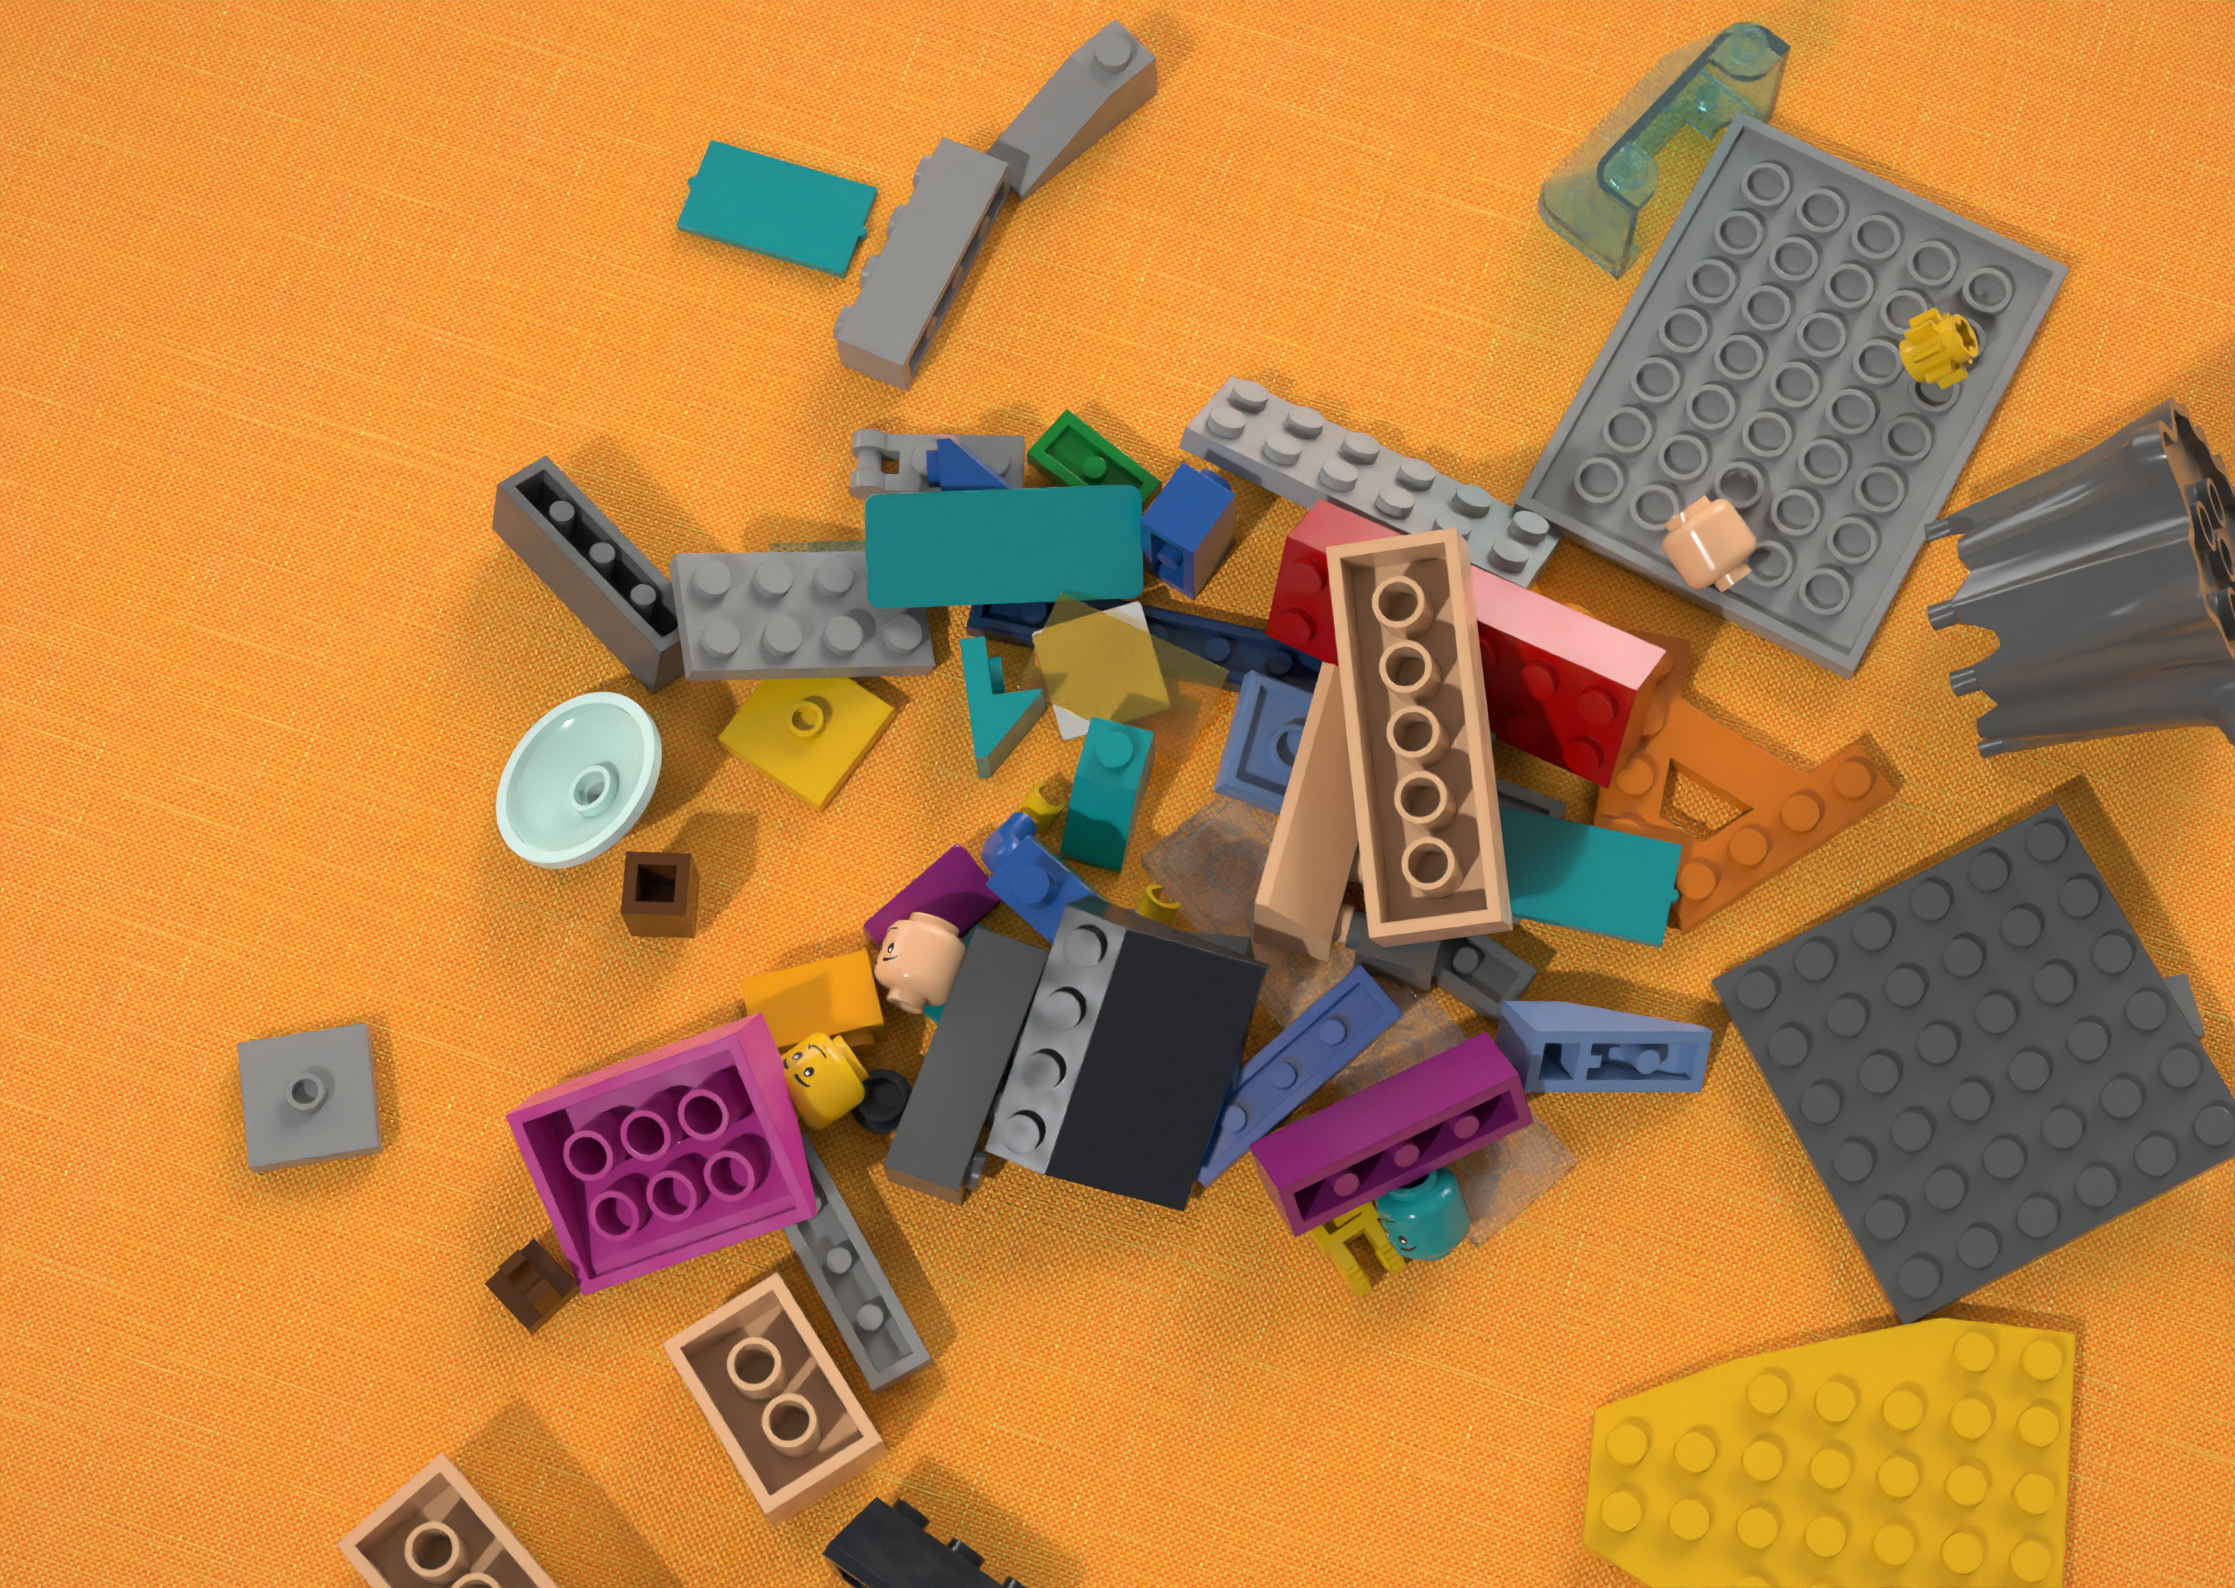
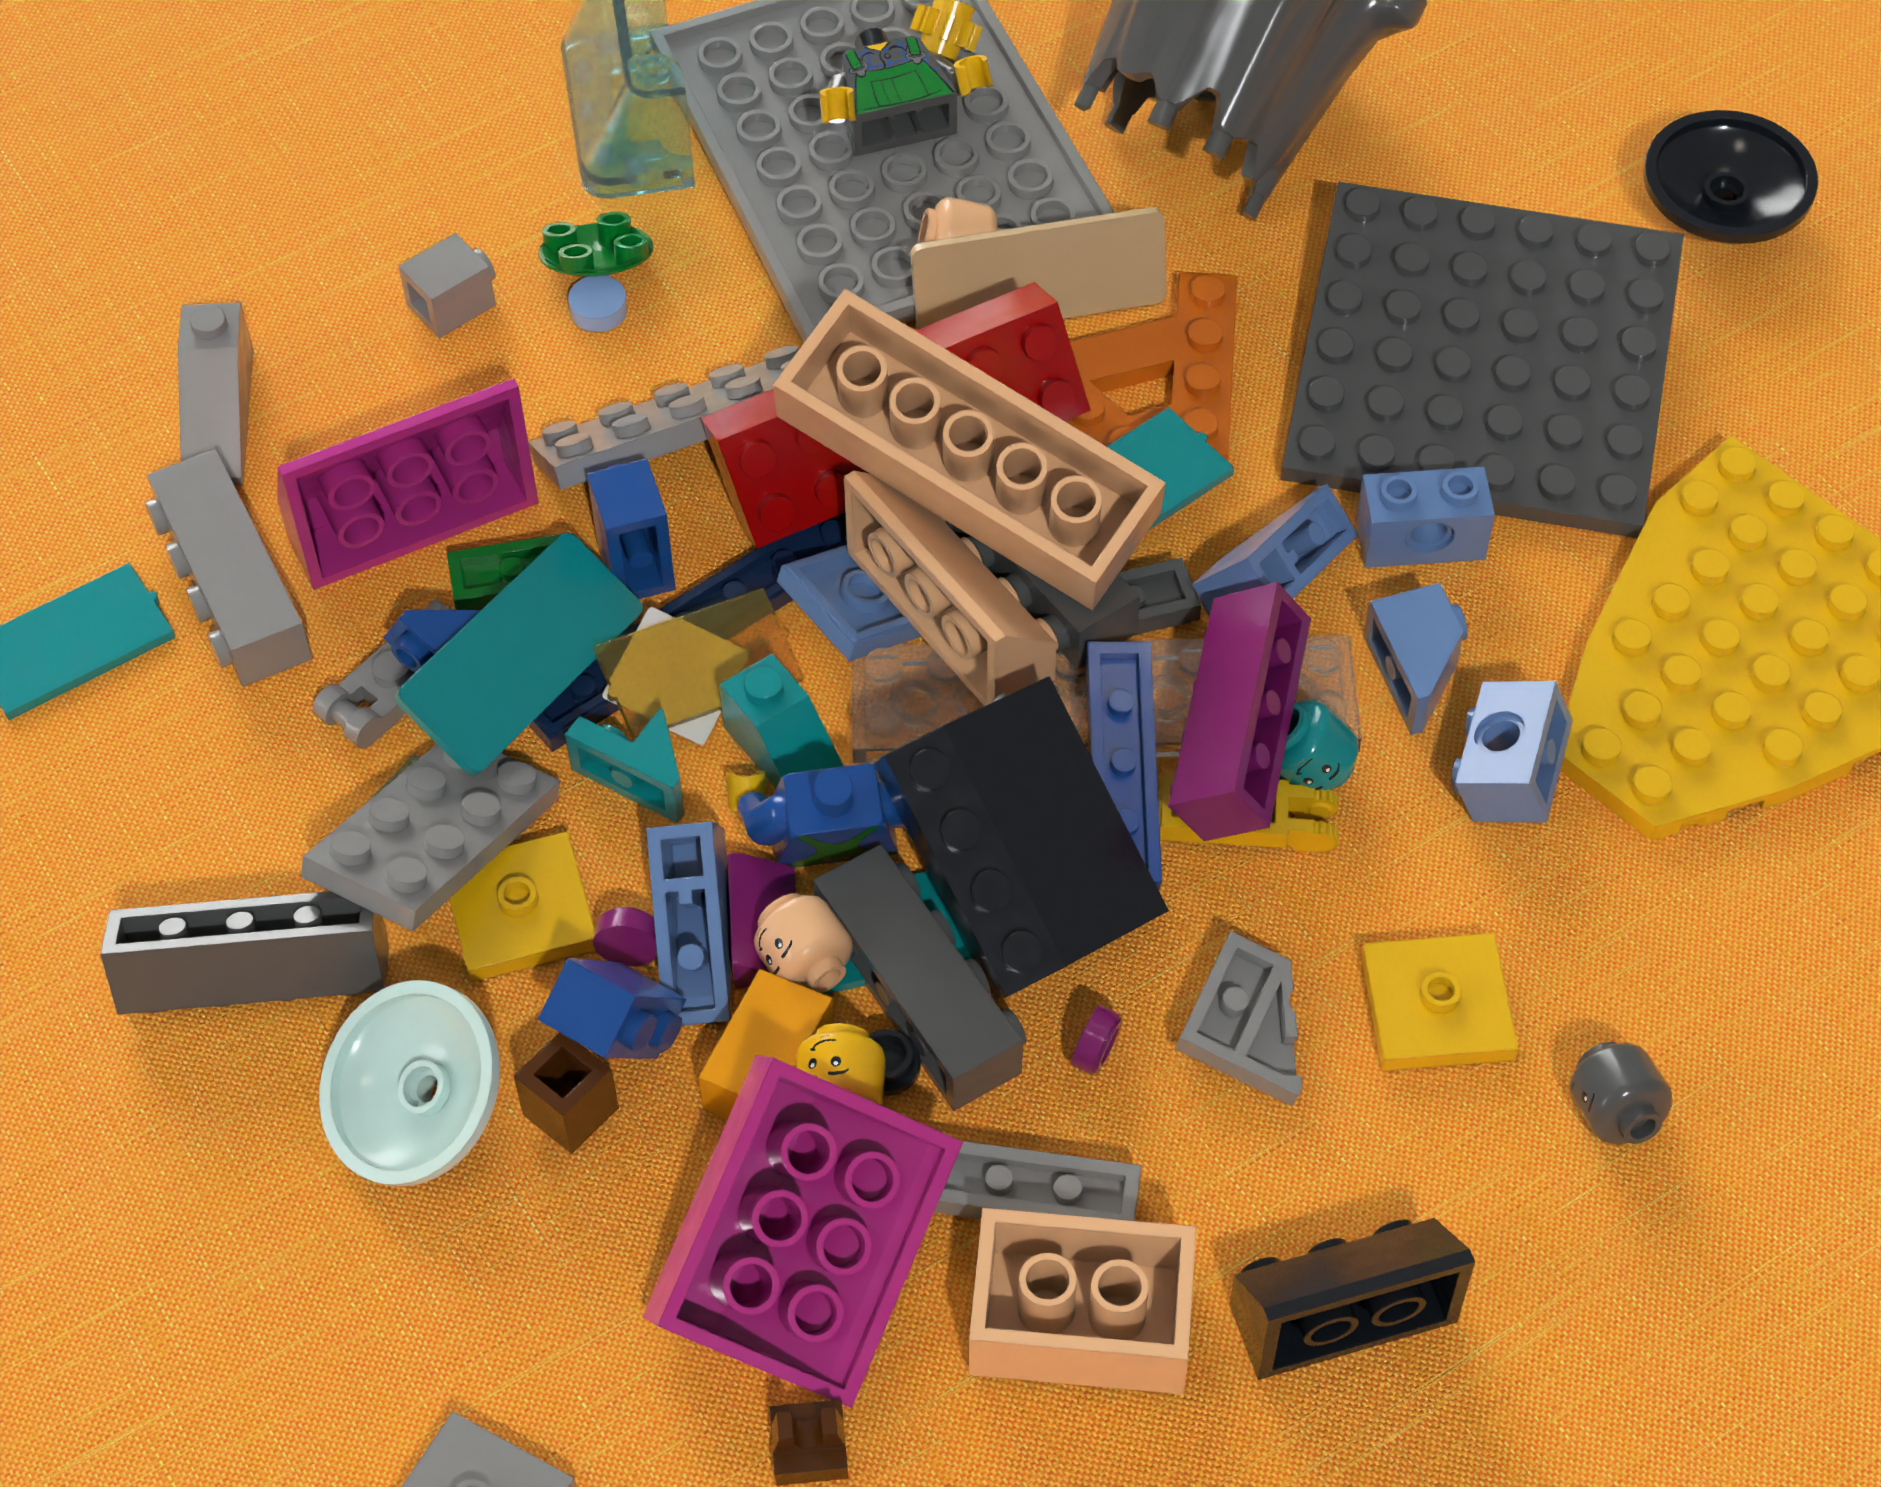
camera: 55 degrees left, 15 degrees down
(744, 874) = (613, 1010): none -> blue brick
(835, 827) = (626, 936): none -> magenta tile
(889, 851) = (692, 917): none -> medium blue slope
(1019, 1243) = (1097, 1040): none -> magenta tile
(1088, 335) = (408, 484): none -> dark pink slope
(1132, 1342) = (1247, 1020): none -> light grey wing
(1273, 1480) = (1438, 1001): none -> yellow plate
(1331, 185) = (448, 284): none -> light grey brick
(1420, 310) = (597, 303): none -> light blue tile
(1469, 262) = (595, 247): none -> green dish
(1537, 1405) = (1513, 751): none -> medium blue brick
(1605, 1227) = (1416, 648): none -> medium blue slope
(1737, 634) = (1080, 262): none -> tan piece
(1749, 1135) = (1424, 517): none -> medium blue brick
(1823, 362) = (898, 91): none -> torso

